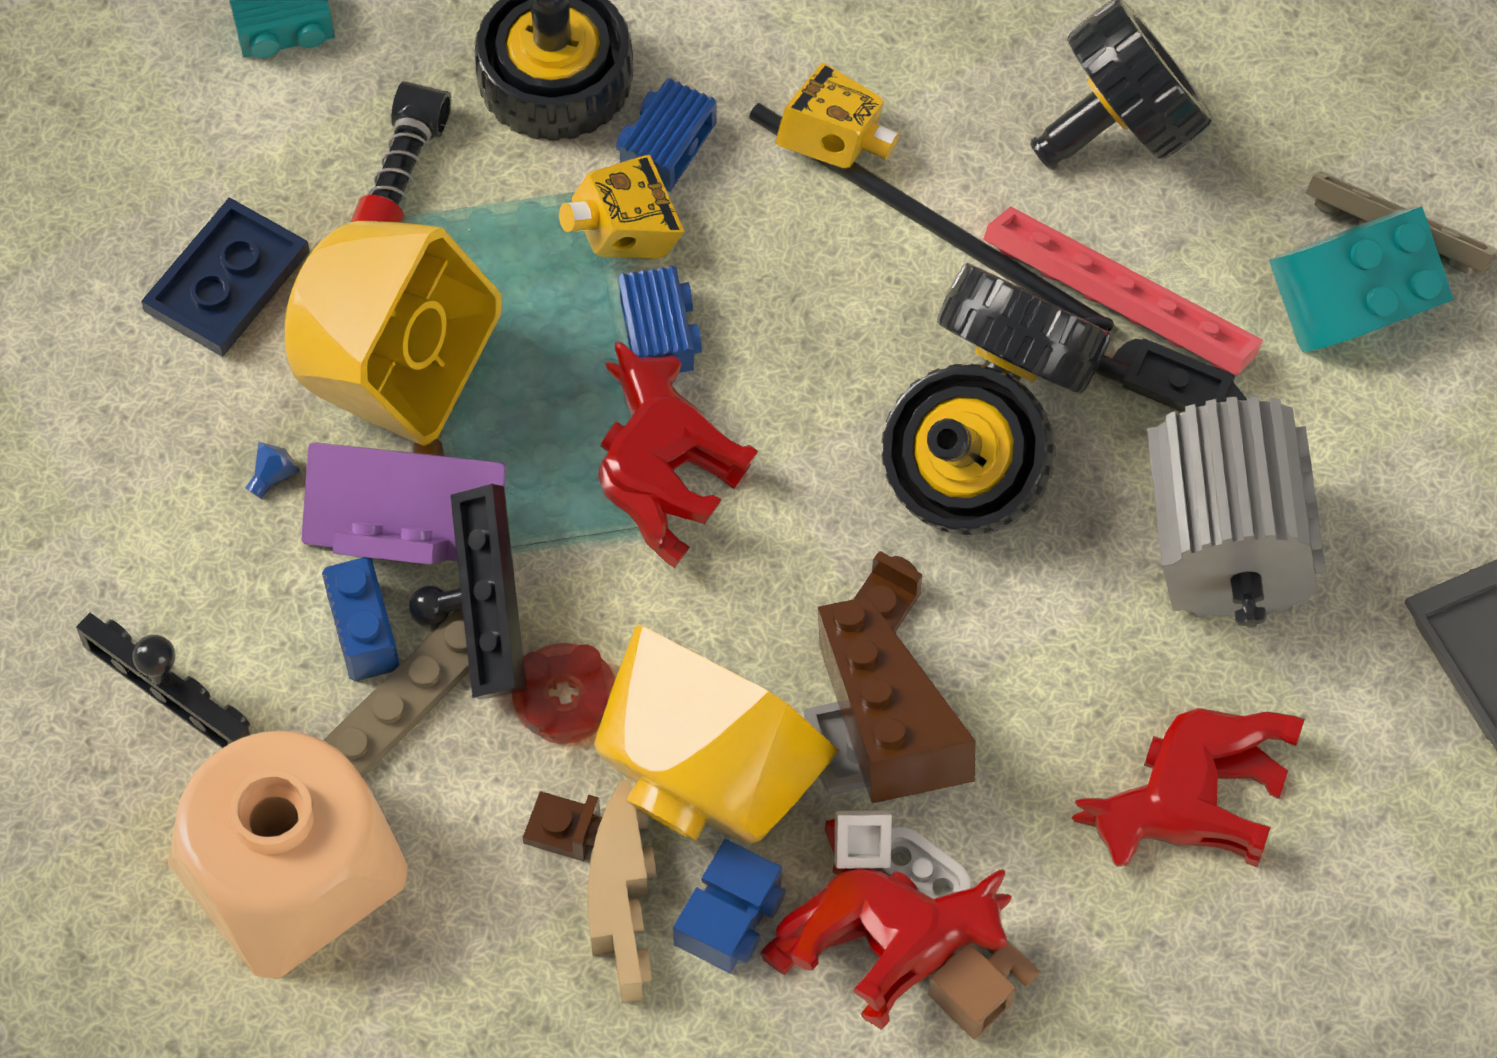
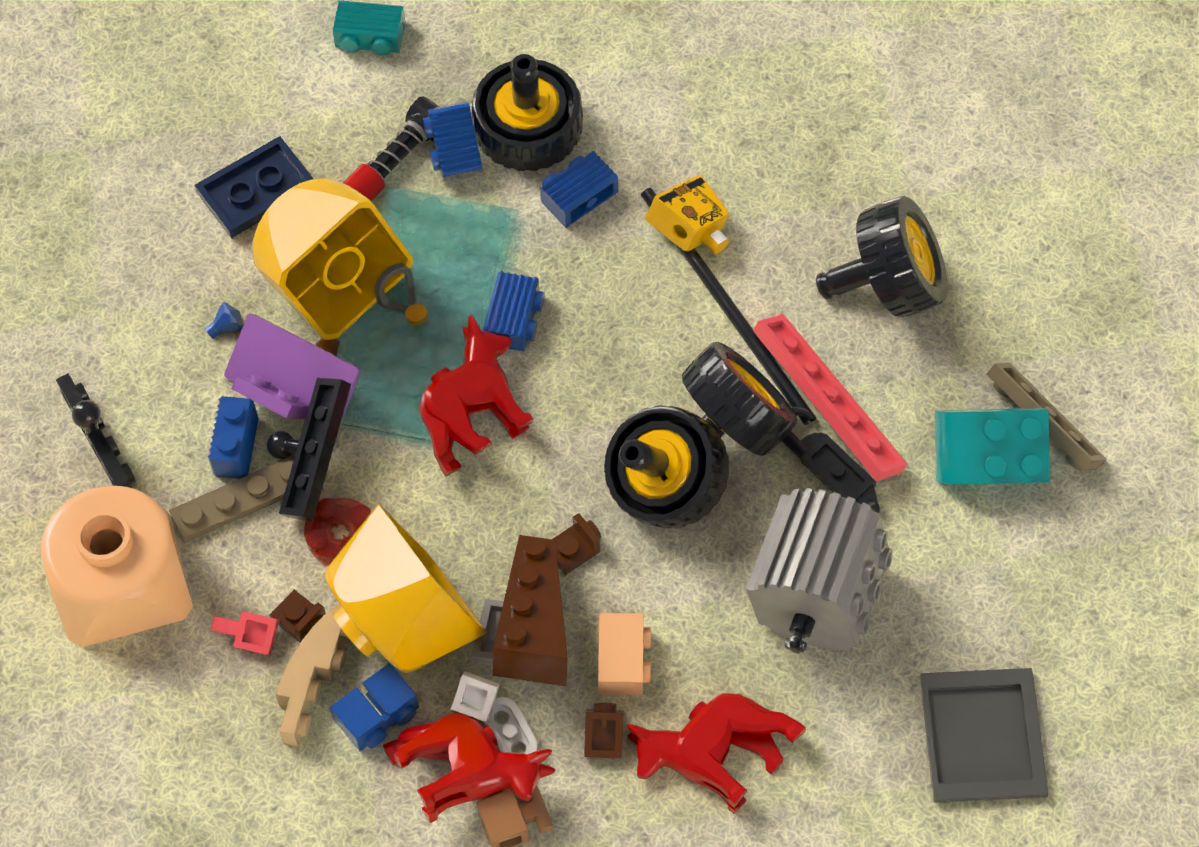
camera: 25 degrees right, 0 degrees up
(474, 123) = (453, 139): none -> blue brick
(513, 869) = (251, 632): none -> coral plate
(531, 368) = (415, 313): none -> dark grey piece
(624, 211) = (522, 230): yellow torso -> none
(1020, 714) = (622, 653): none -> light nougat brick
(1044, 823) = (604, 731): none -> reddish brown bracket

